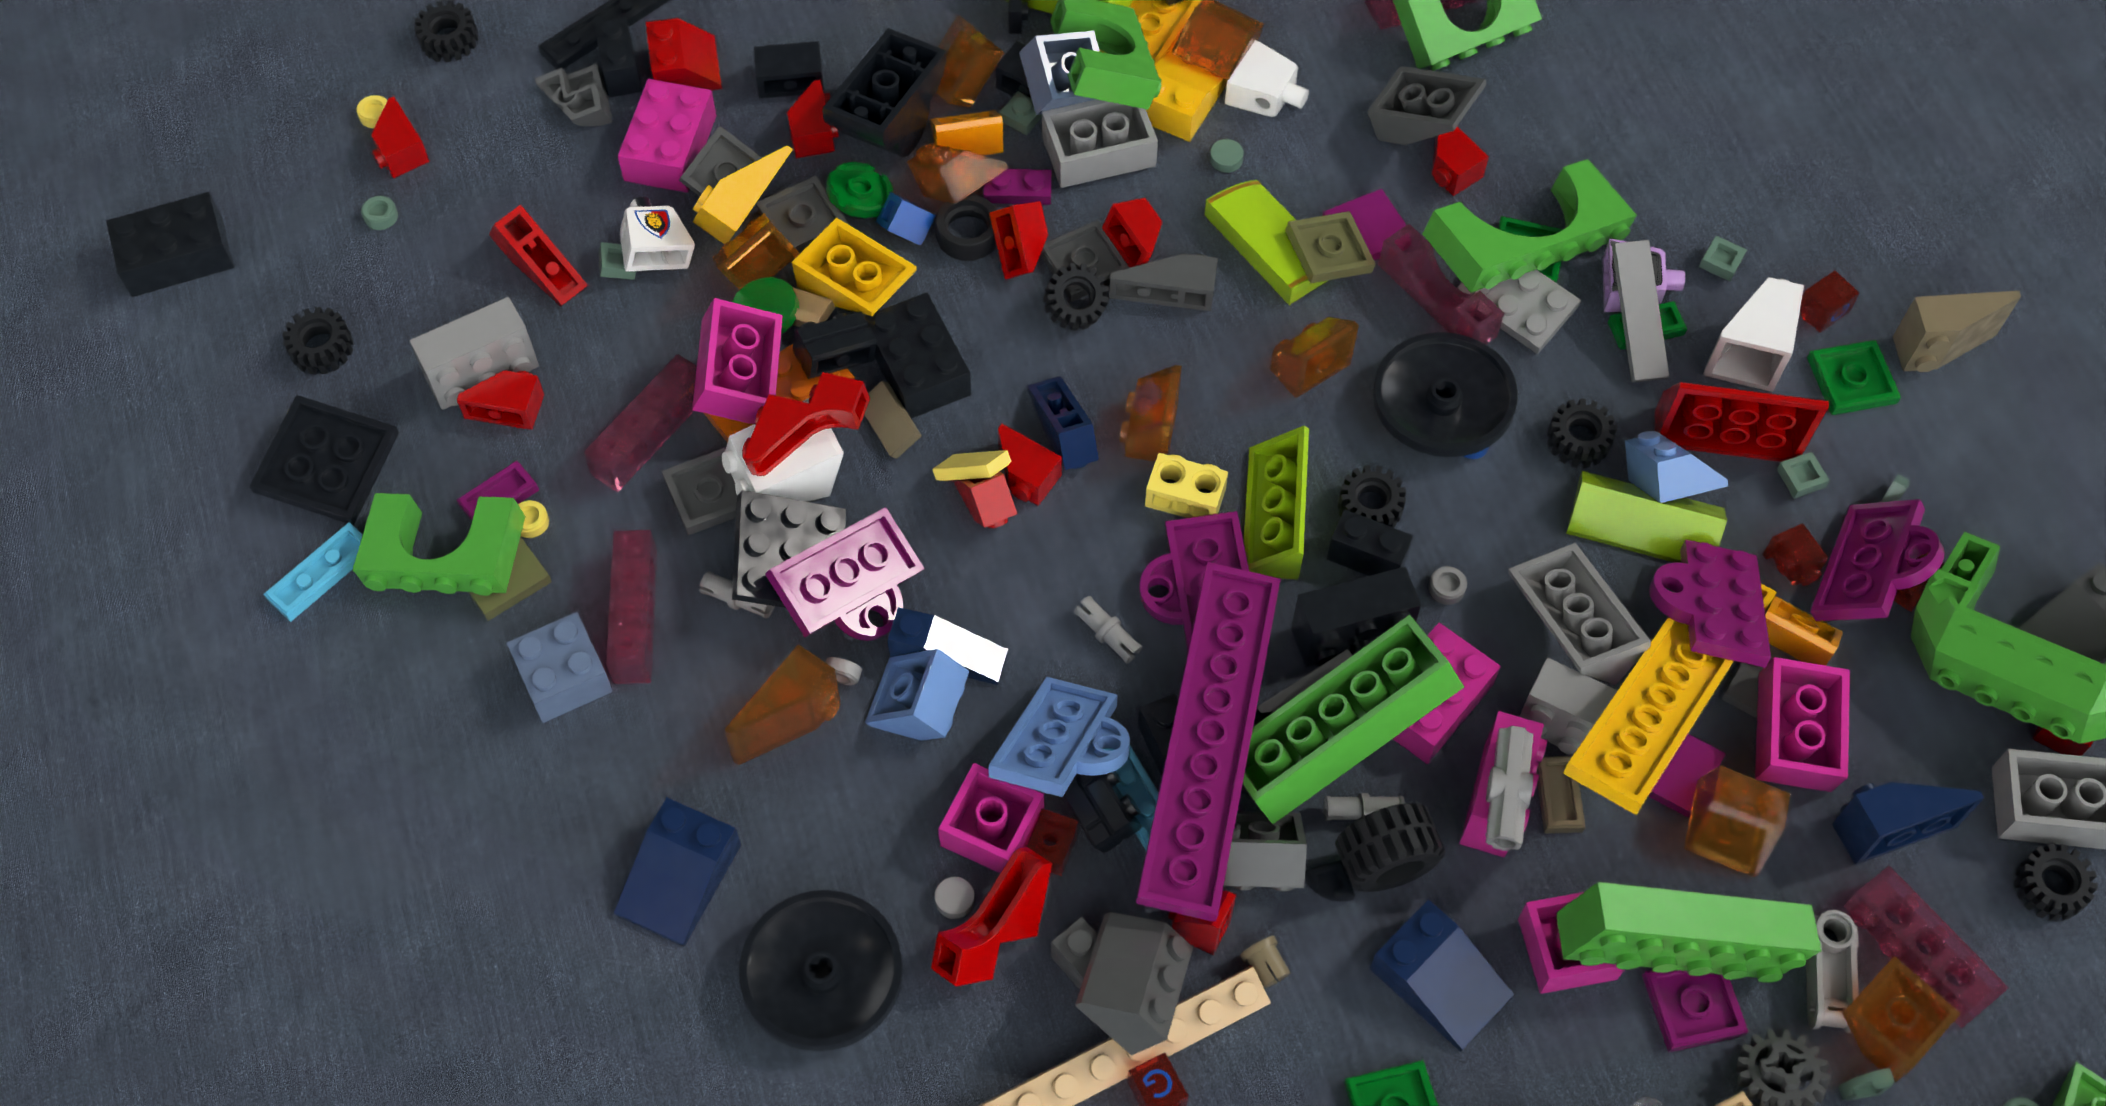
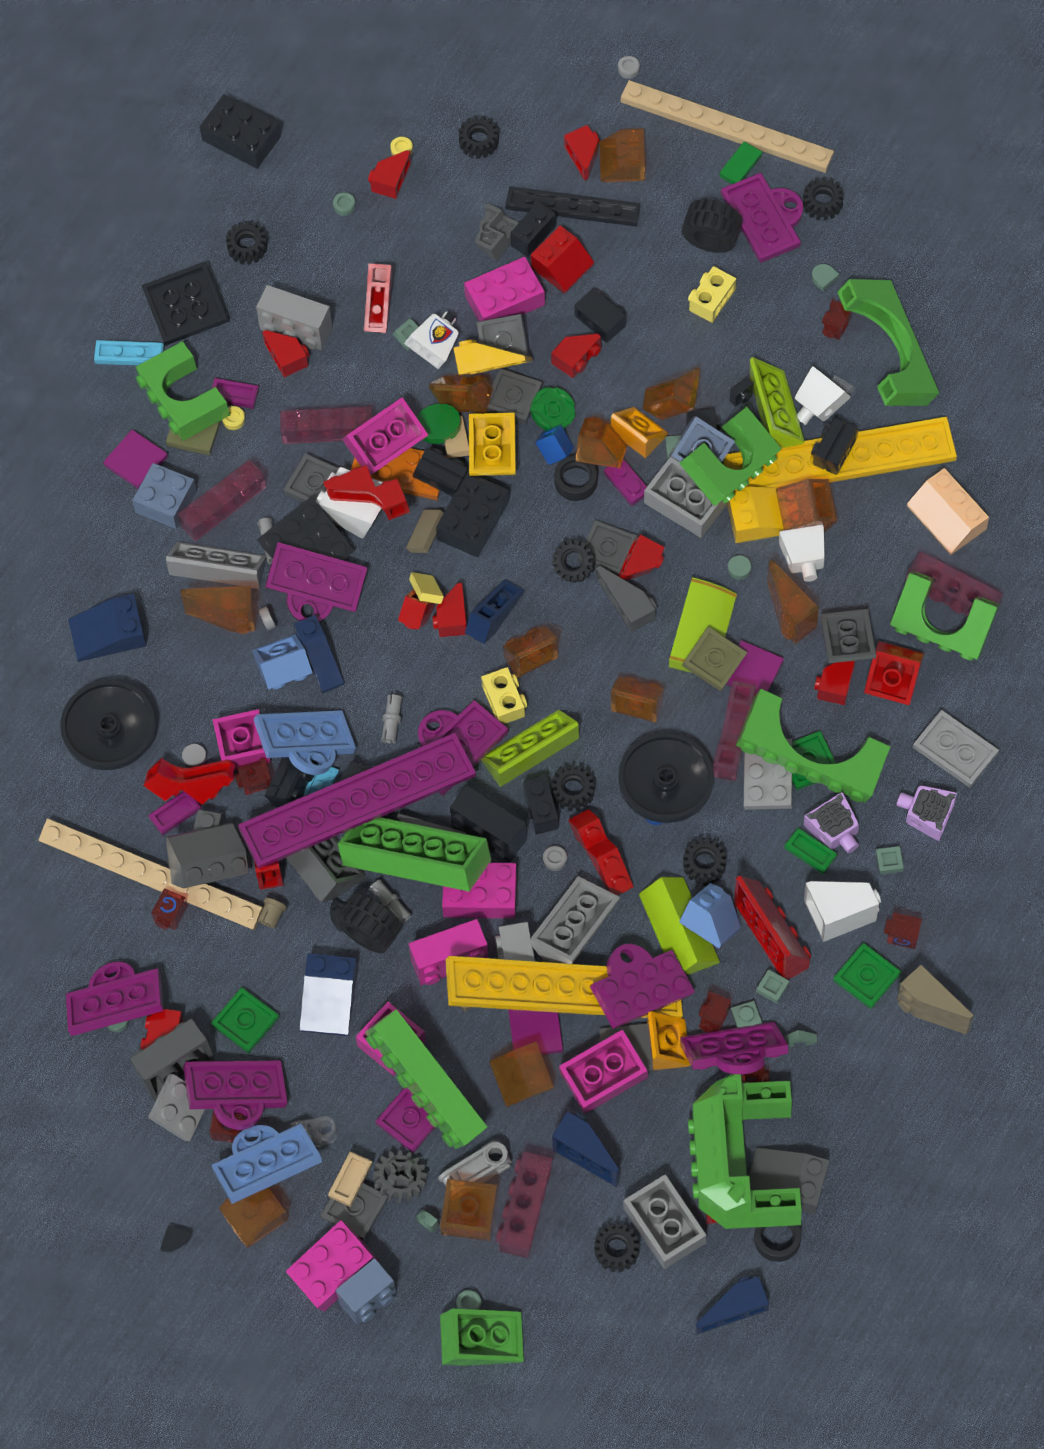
camera: 55 degrees right, 5 degrees up
(471, 668) = (134, 458): none -> magenta tile
(711, 677) = (216, 564): none -> light grey slope
(889, 93) = (610, 376): black brick -> none
(1014, 982) = (174, 813): none -> magenta tile
(1019, 237) = (588, 506): red slope -> none
(1323, 131) = (793, 608): none -> clear orange slope
(1499, 525) = (601, 851): none -> red arch
(1501, 105) = (894, 673): none -> red slope
(1509, 788) = (431, 948): light grey piece -> none
(1630, 111) = (955, 749): none -> light grey plate
(1640, 311) = (804, 837): light grey tile -> none
(1691, 181) = (928, 809): none -> torso
(1823, 527) = (745, 1015): none -> sand green plate

